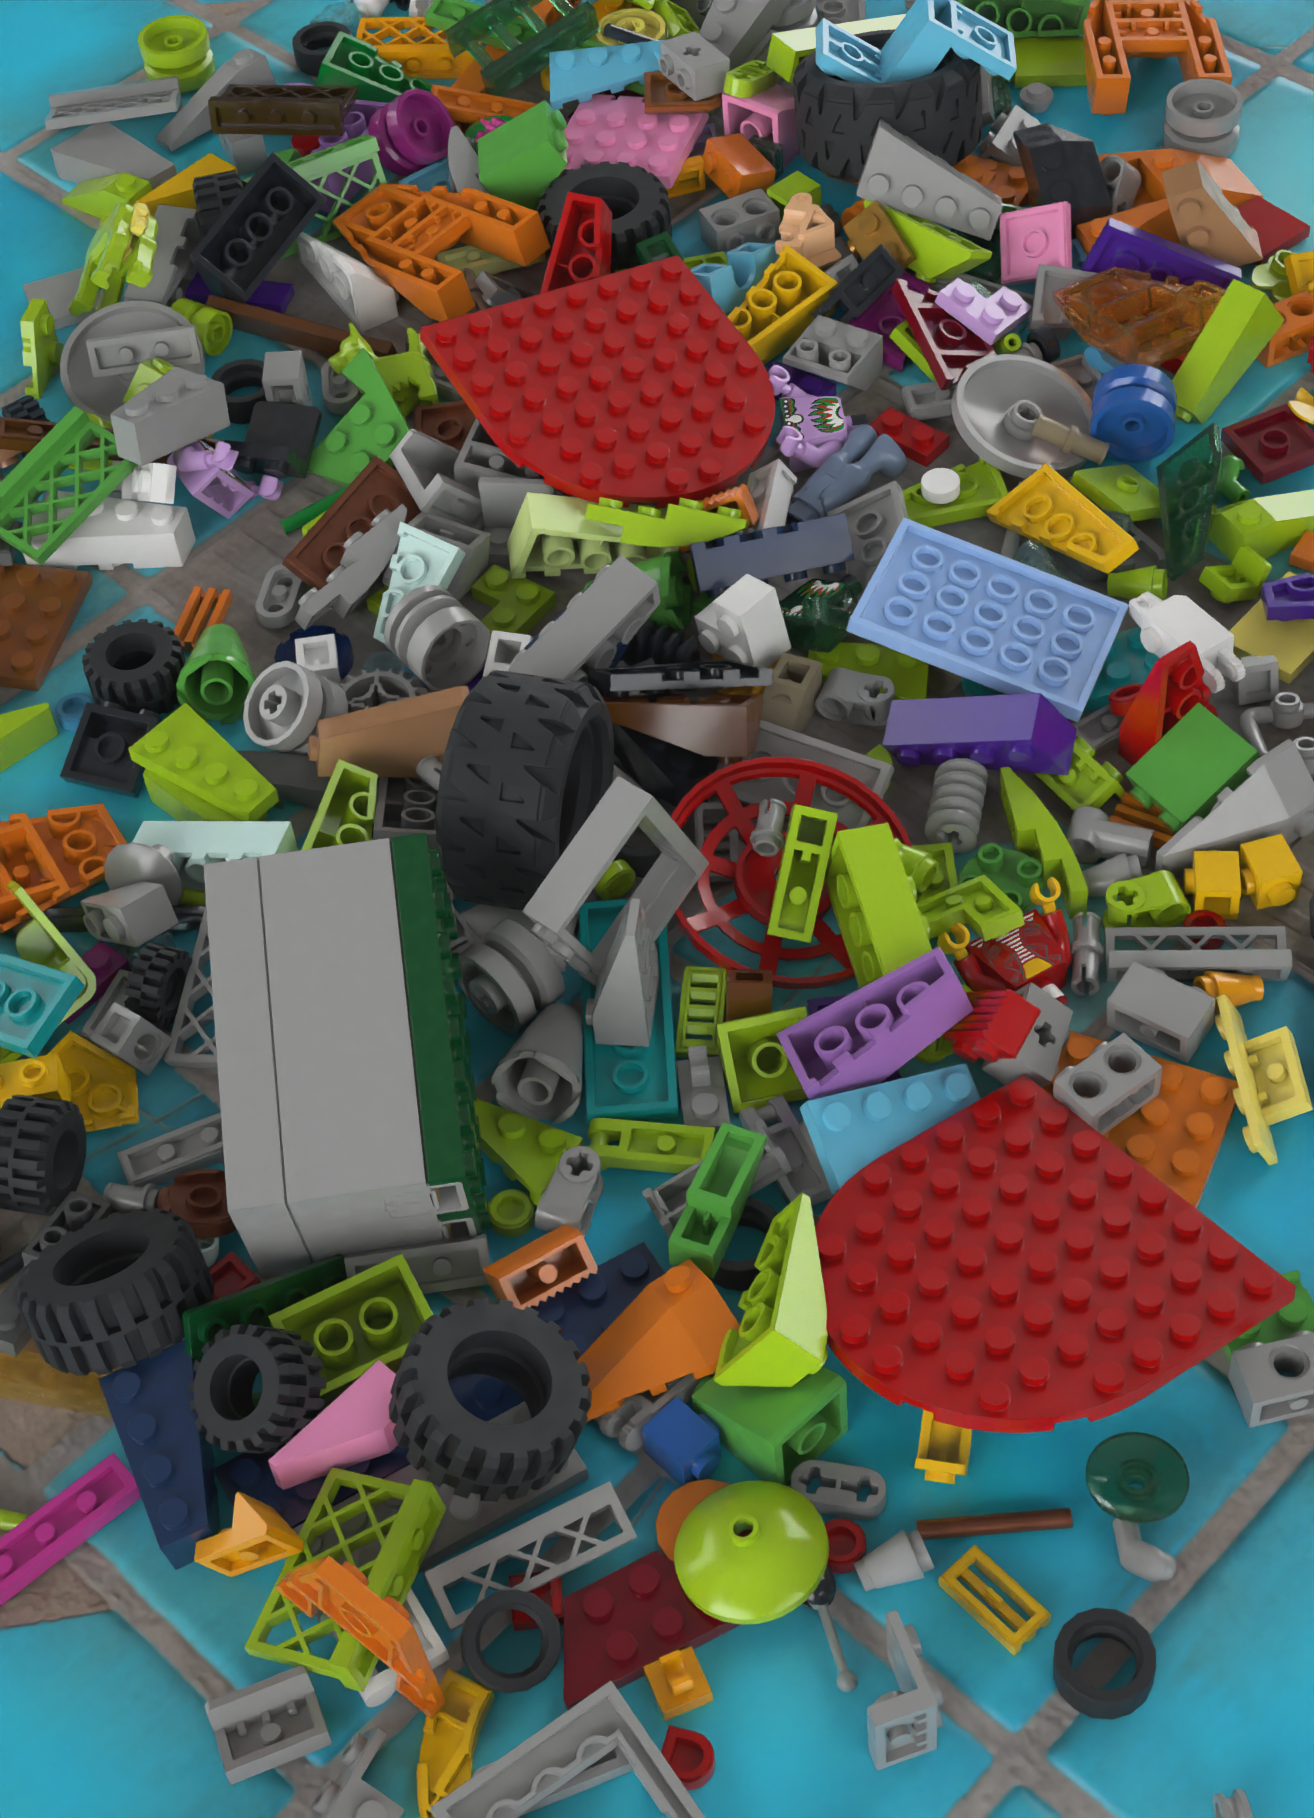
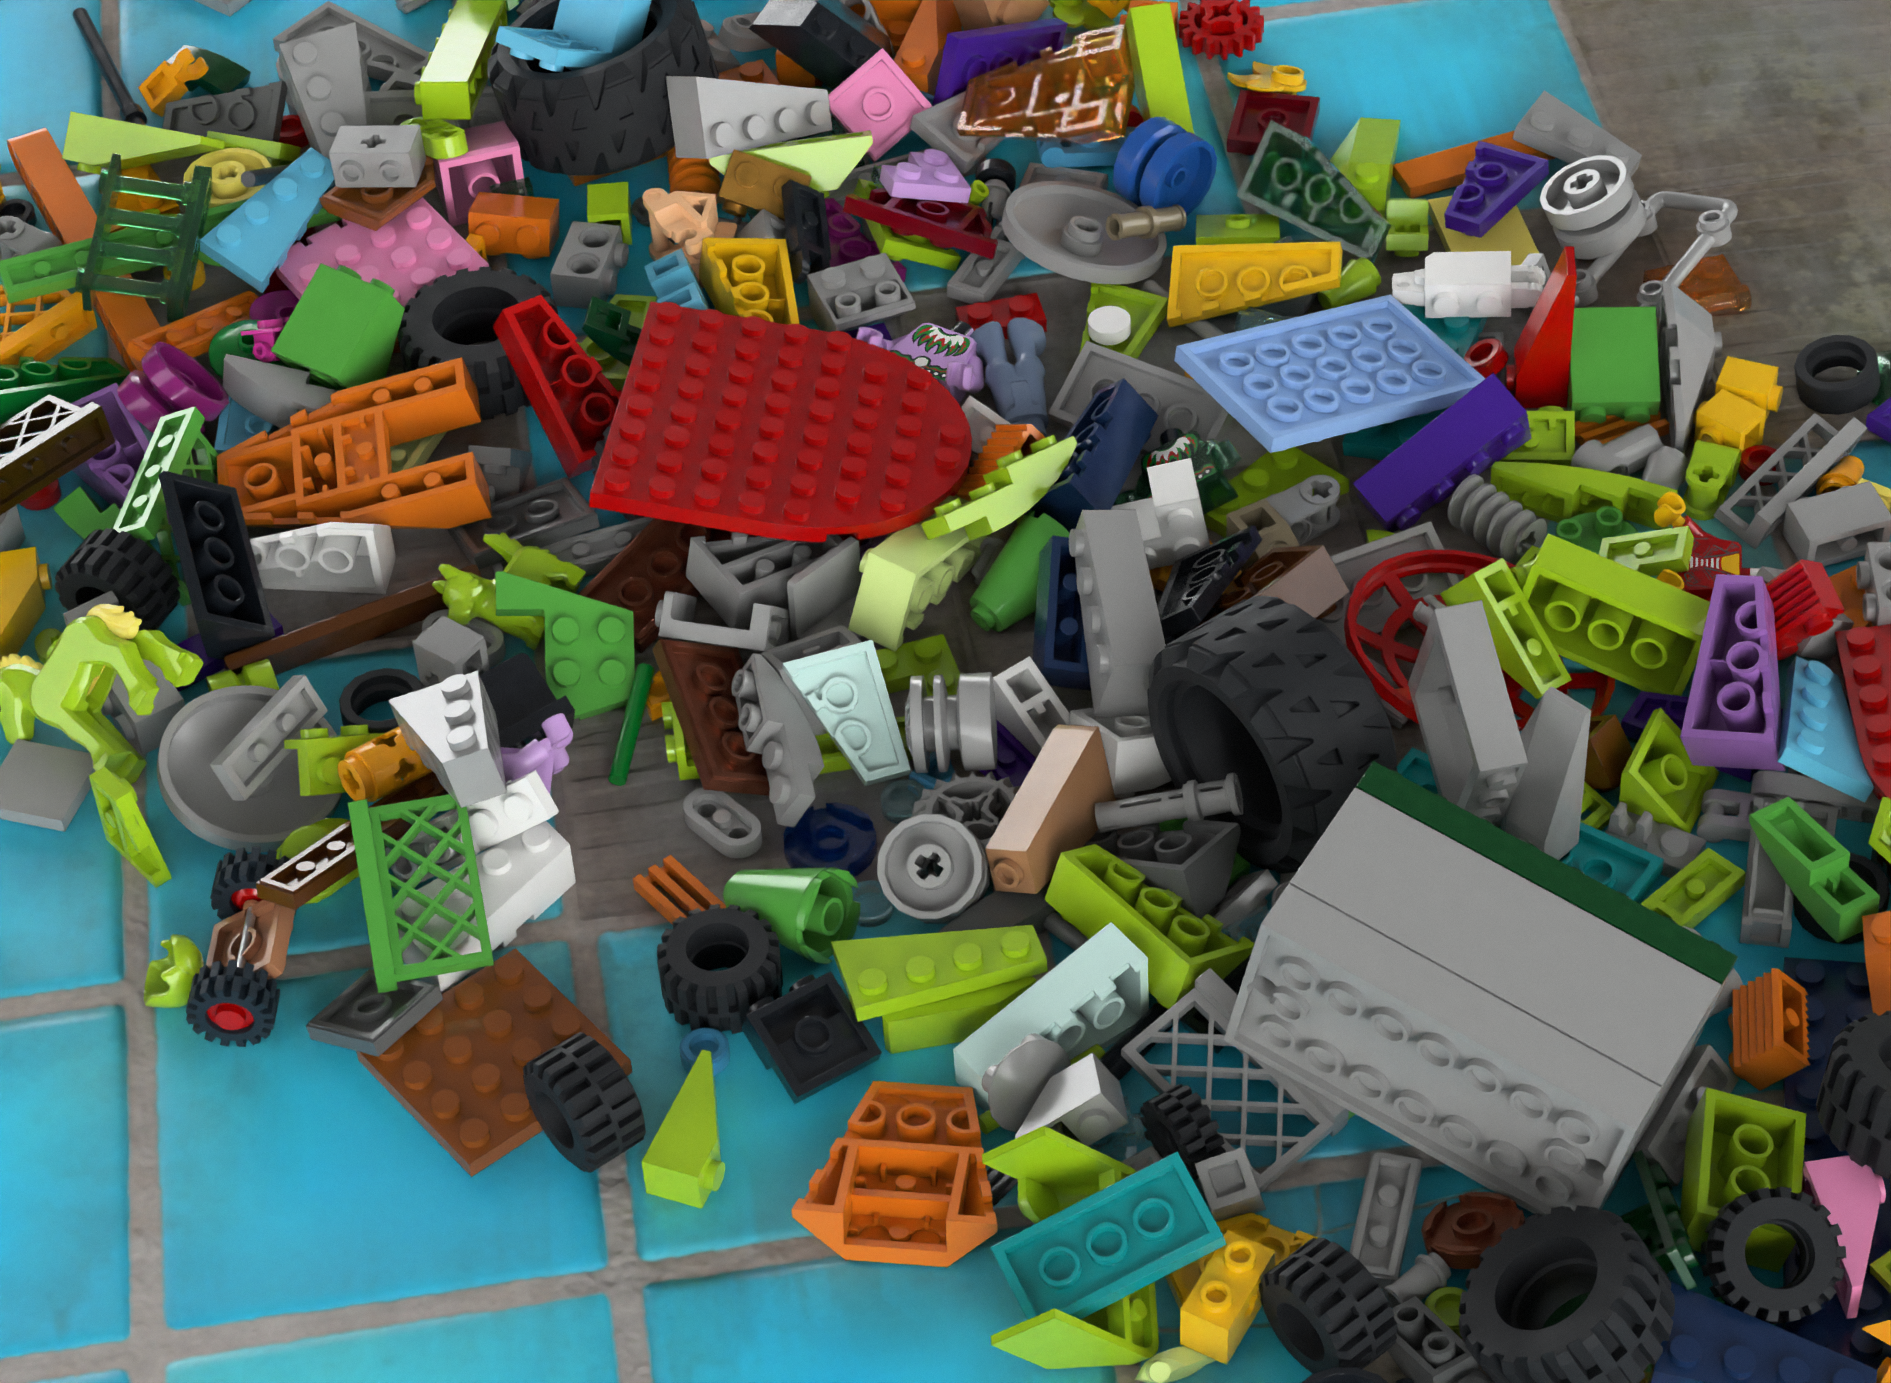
camera: 55 degrees left, 5 degrees down
(319, 655) = (860, 831): white bracket -> none
(1086, 953) = (1751, 547): light grey pin -> none

